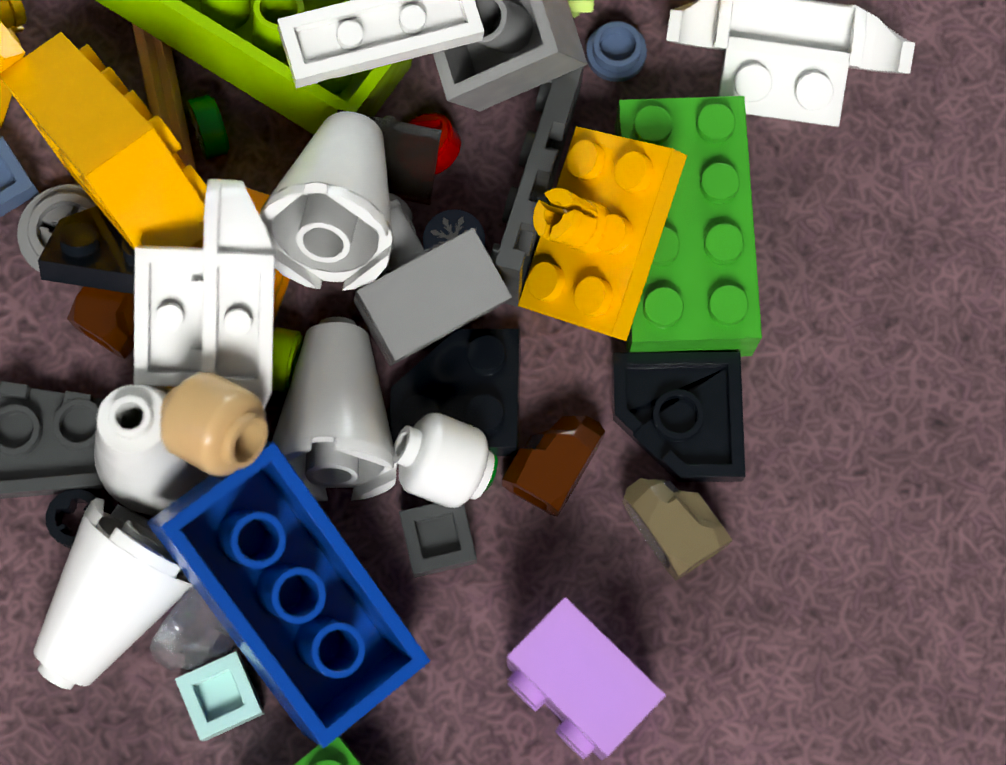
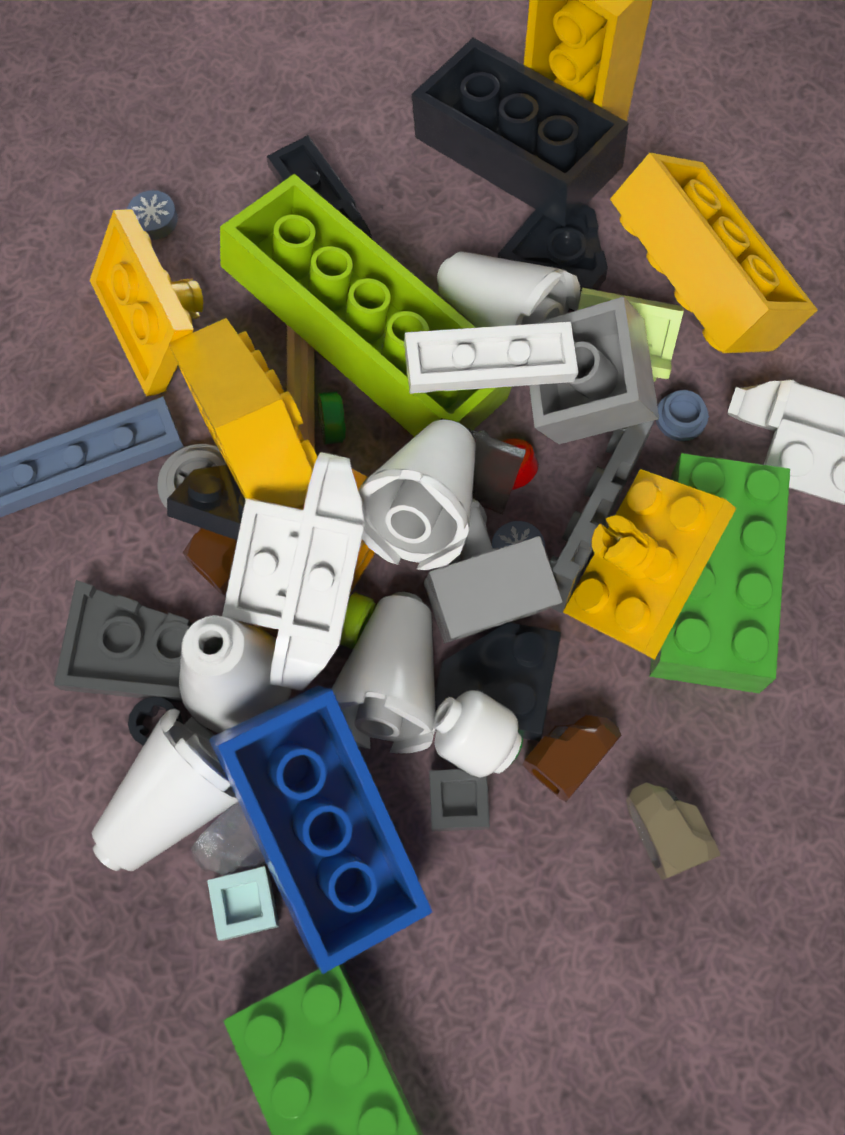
camera: 15 degrees right, 5 degrees down
(213, 424) = (282, 664): tan head -> none
(581, 681) = (569, 961): lavender brick -> none
(683, 411) = (693, 731): black plate -> none

